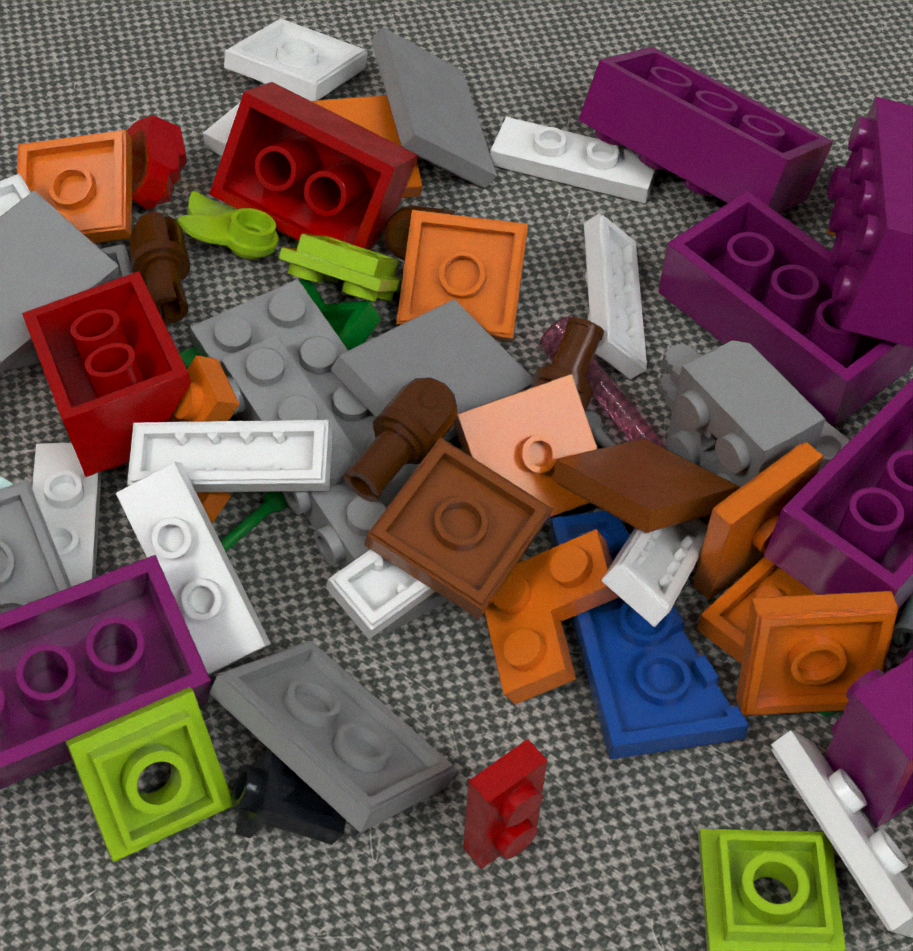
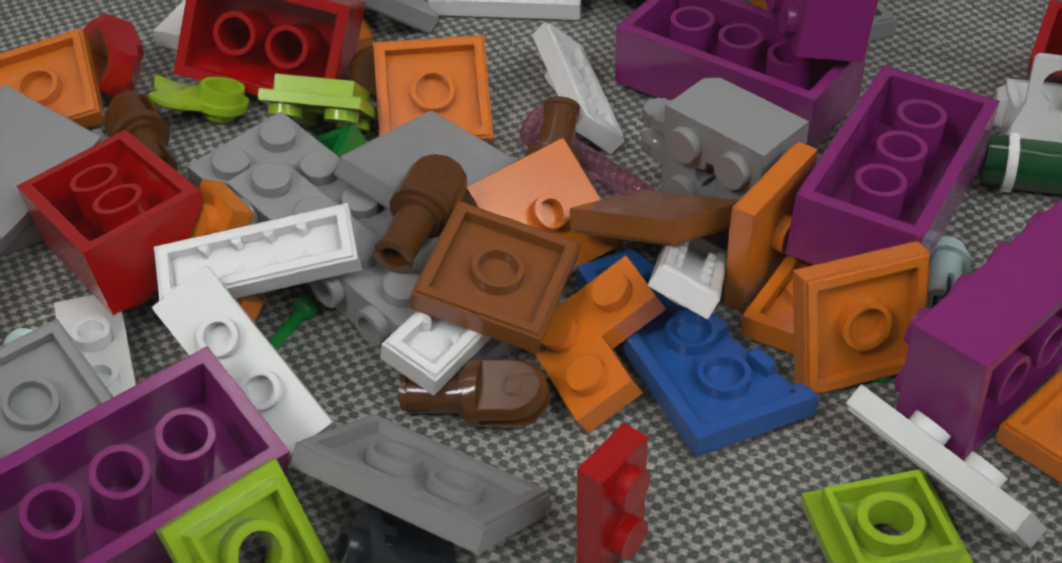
camera: 10 degrees left, 10 degrees down
(423, 646) = (484, 394): none -> reddish brown arm

